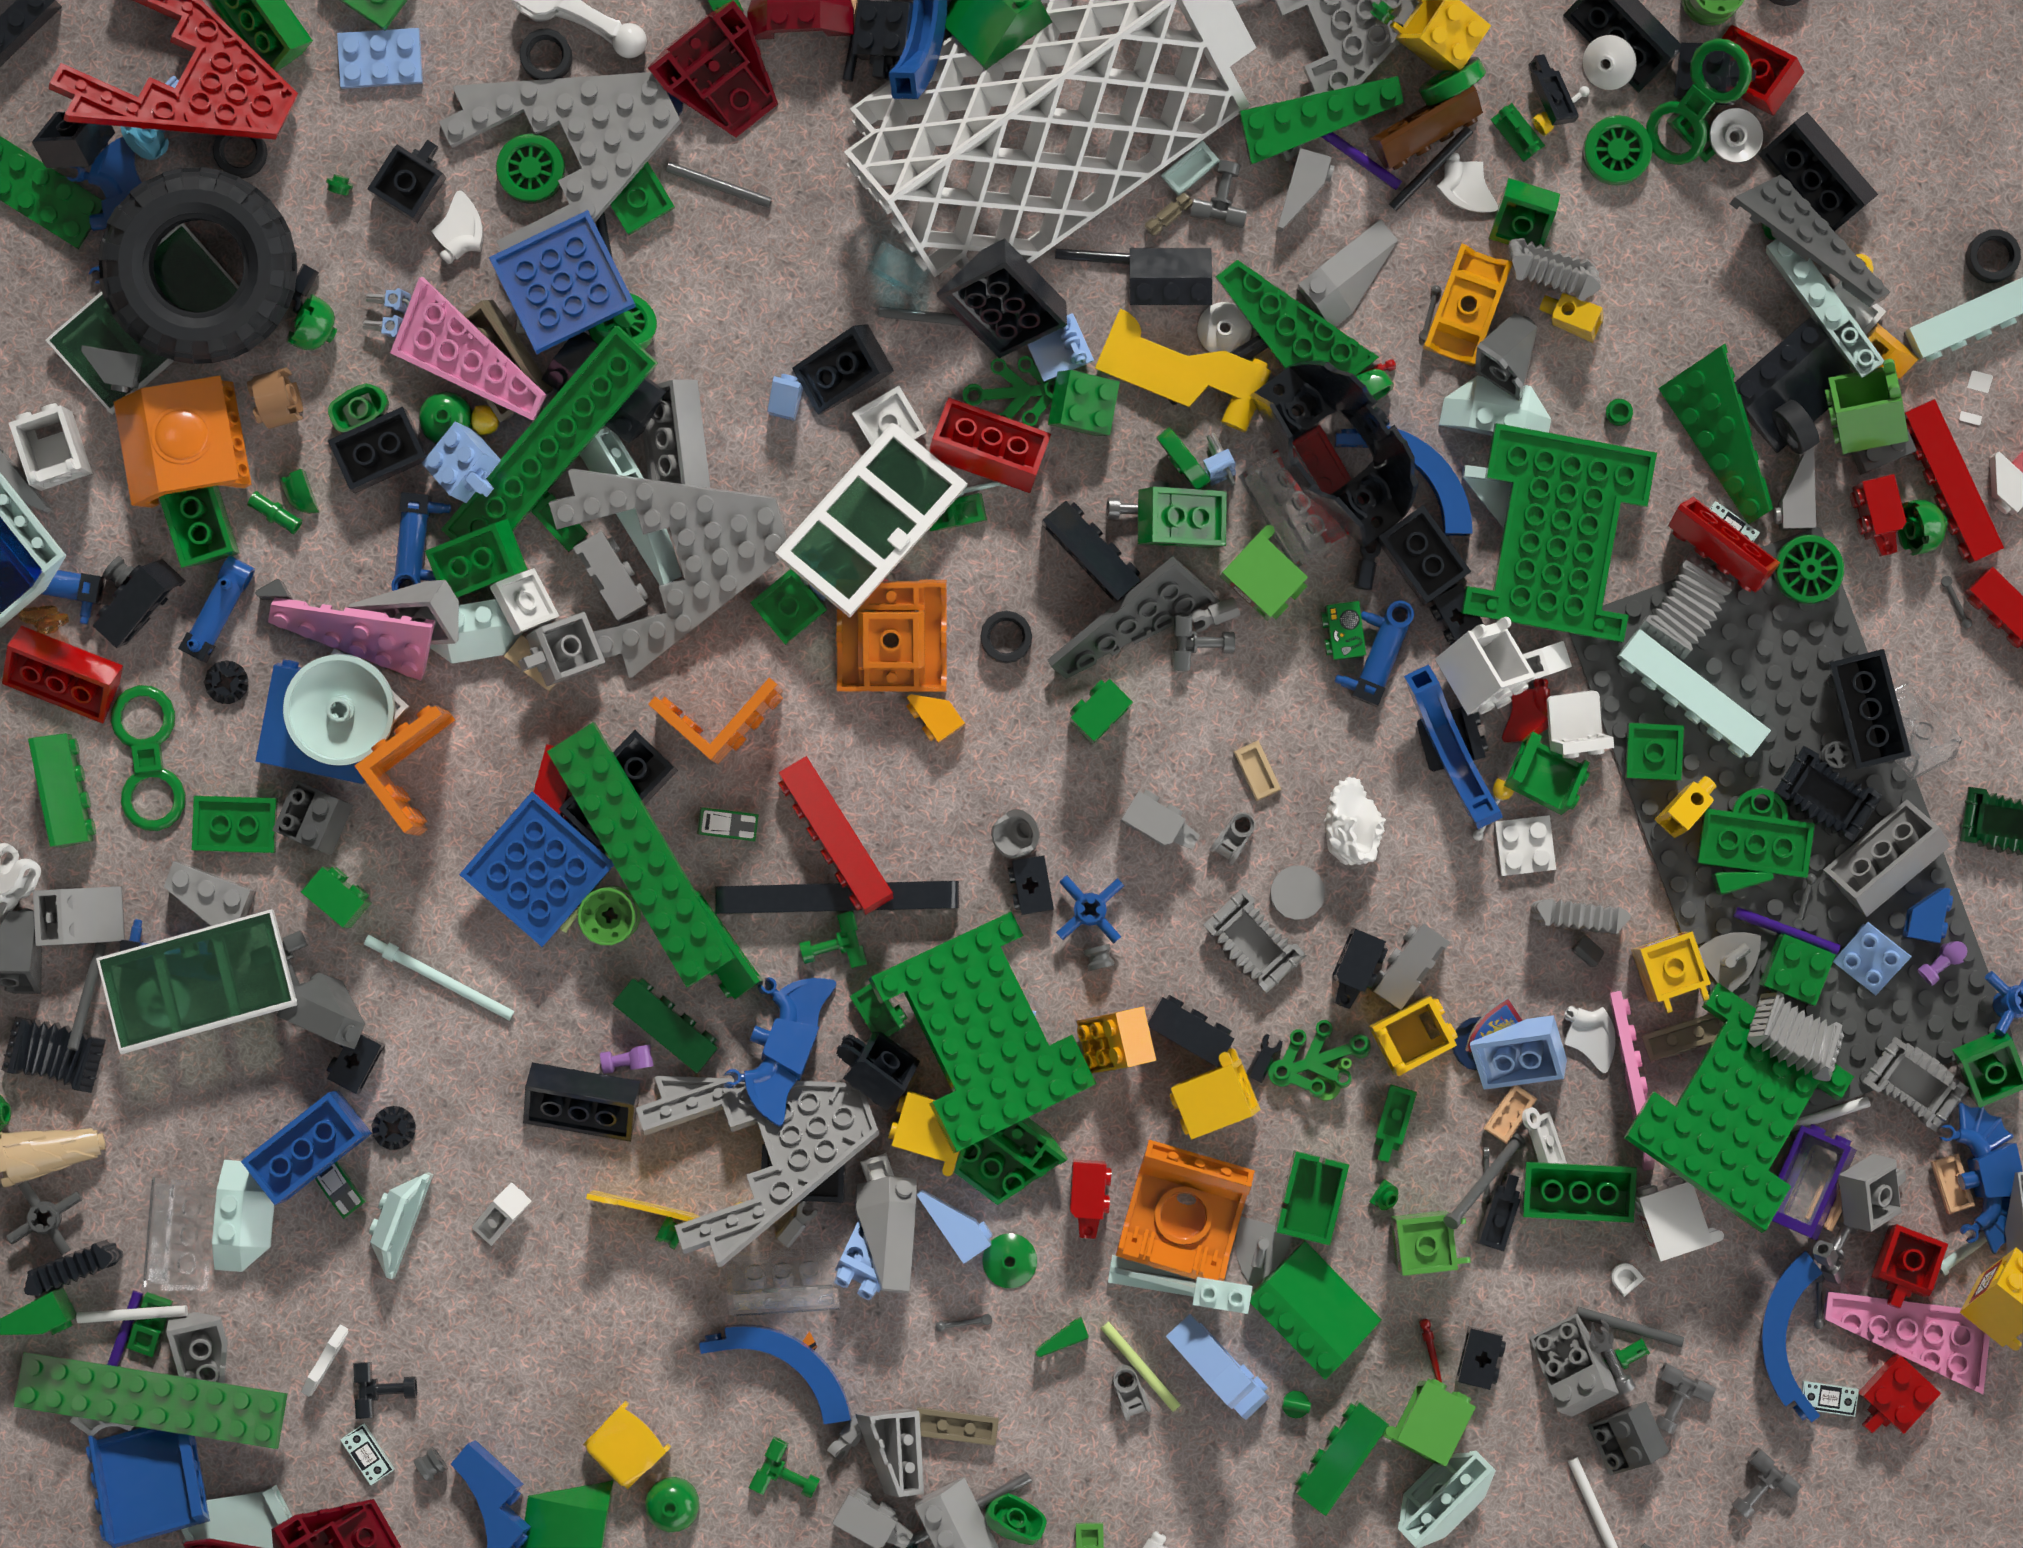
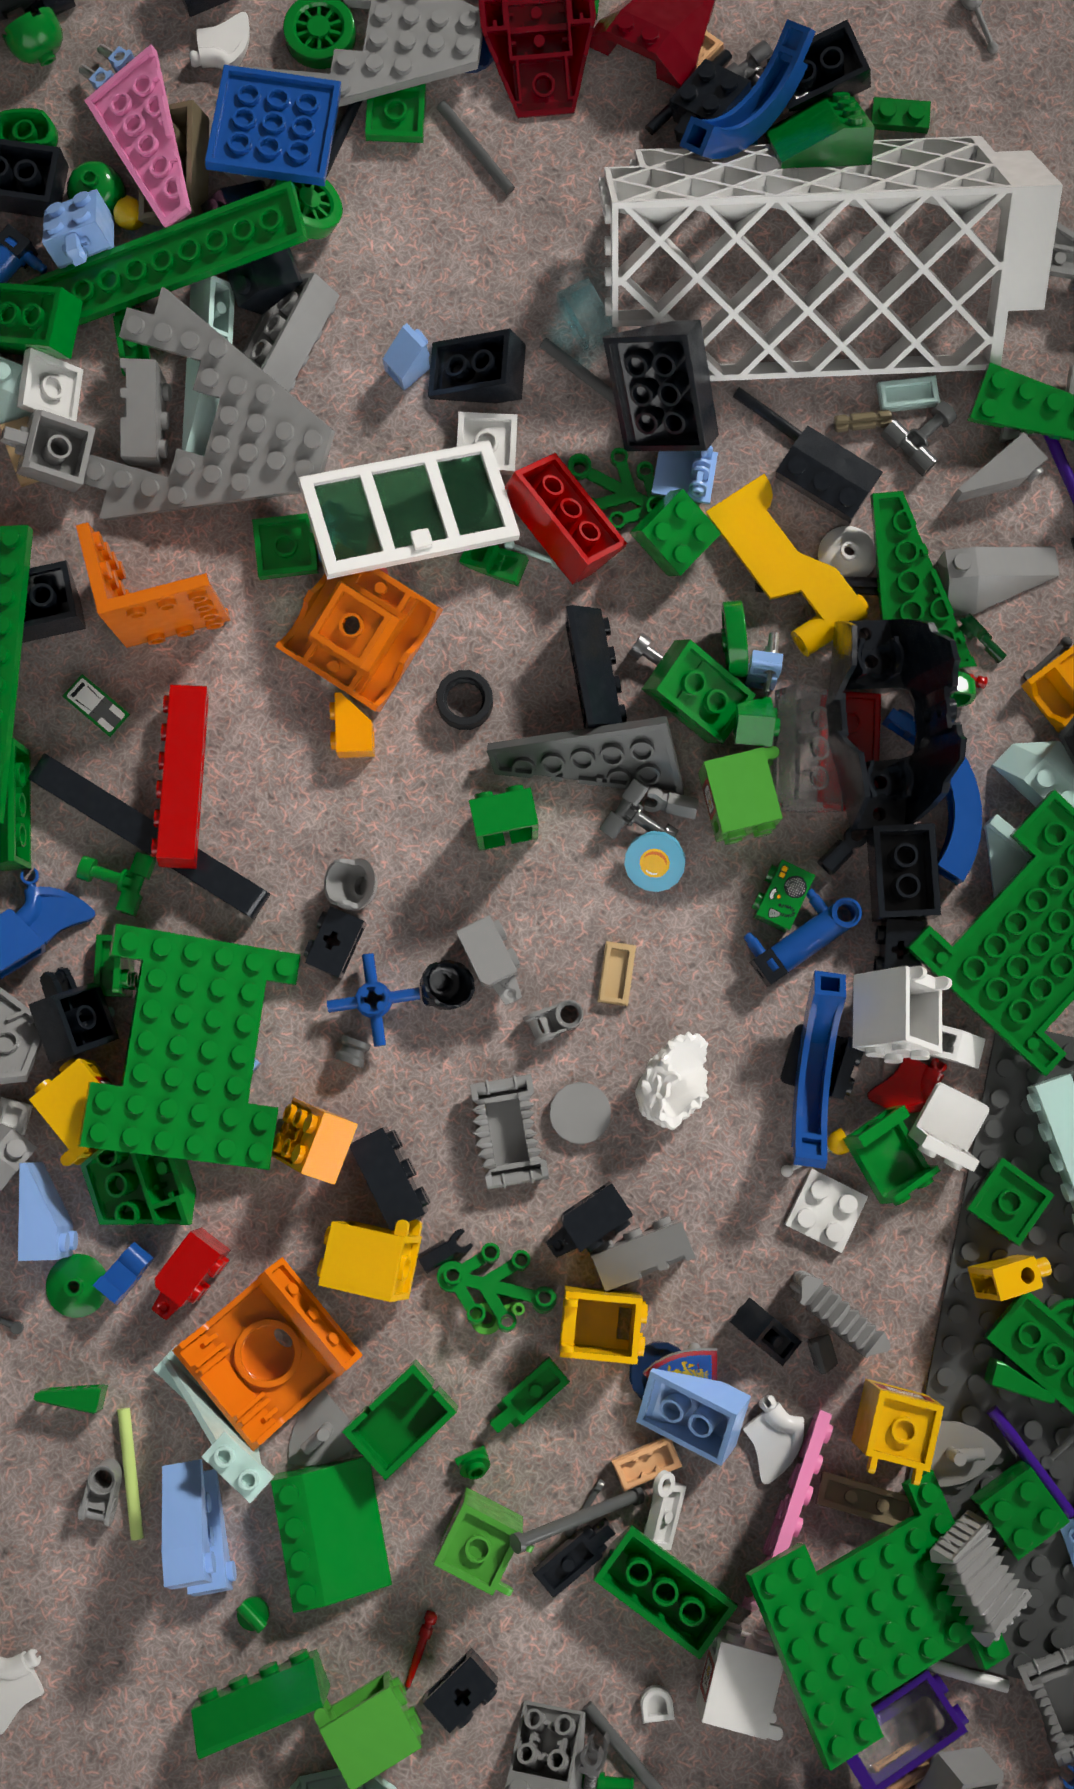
camera: 30 degrees right, 5 degrees down
(1040, 1228) = (124, 1273): none -> blue leg
(1138, 862) = (447, 985): none -> black hair
(1232, 667) = (655, 861): none -> medium azure tile
(1241, 514) = (756, 722): none -> green slope
(1357, 328) = (973, 628): none -> dark green plate
(1536, 962) = (765, 1331): none -> black slope

